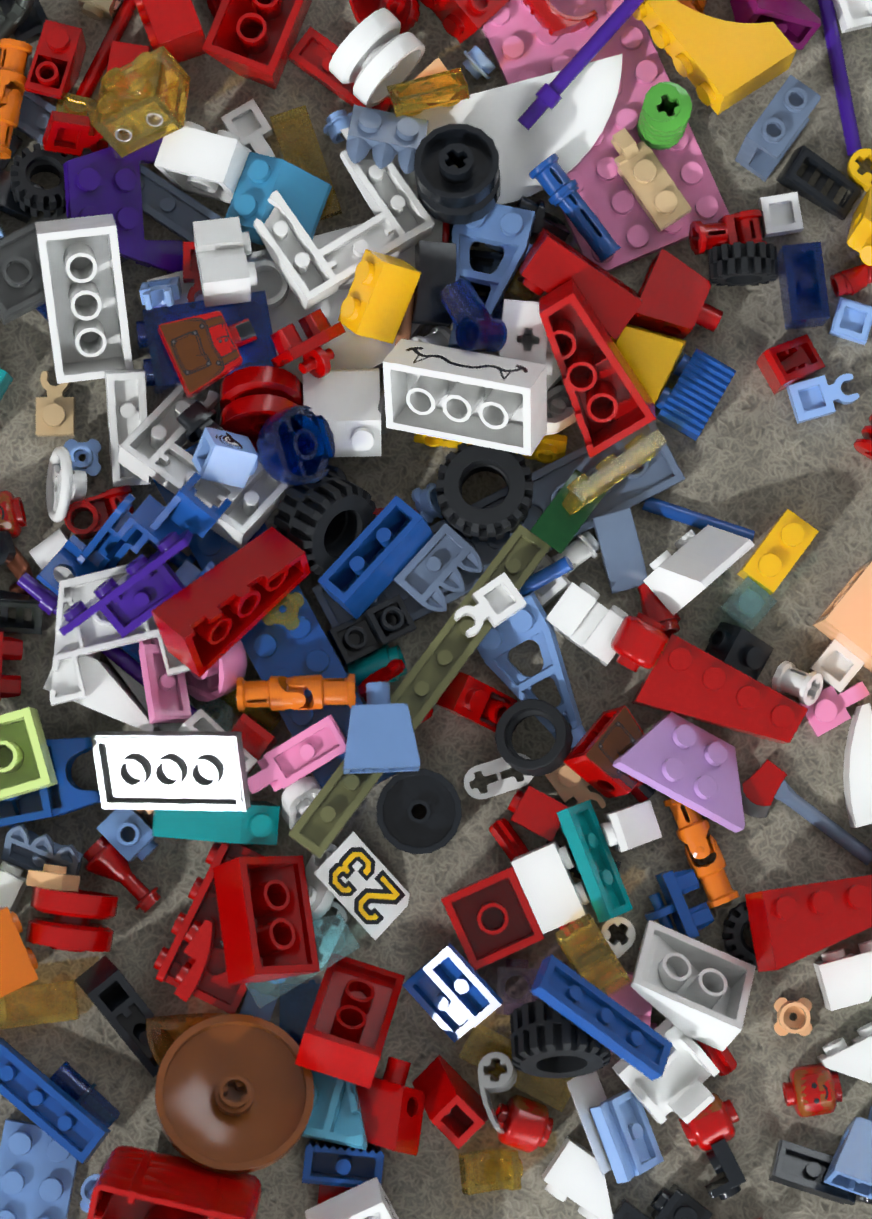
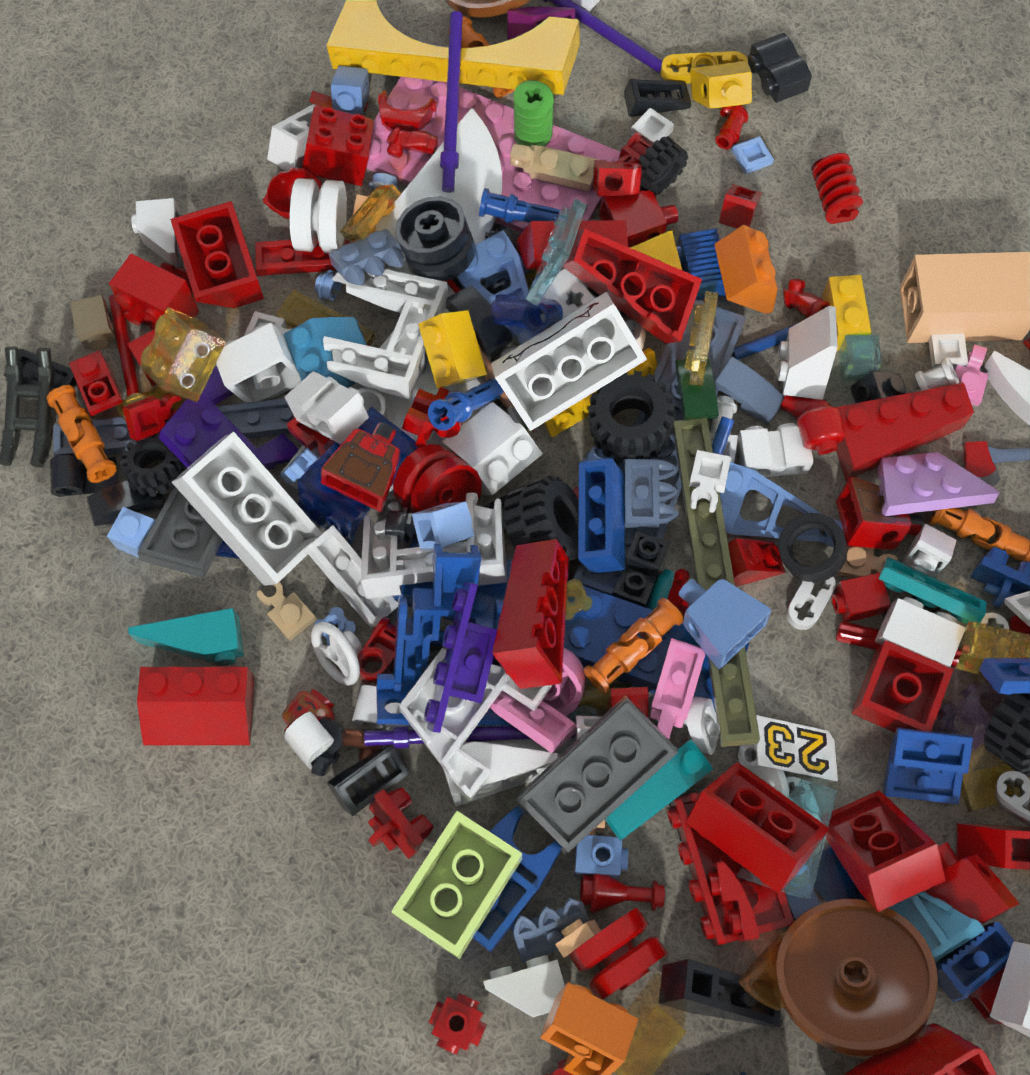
camera: 40 degrees left, 15 degrees down
(295, 446) = (484, 480): clear blue cylinder -> none
(320, 356) = (460, 405): none -> blue pin
(423, 834) = (797, 645): black wheel -> none
(539, 45) = (414, 141): none -> red arm
(541, 288) = (557, 250): none -> clear light blue wing
(685, 247) = (616, 178): none -> red leg
(718, 437) = (747, 269): none -> orange slope
(753, 509) = (804, 302): none -> red arm
(777, 128) = (605, 70): sand blue panel -> none
(803, 285) = (709, 152): clear blue brick -> none
(815, 397) = (777, 210): light blue plate -> none

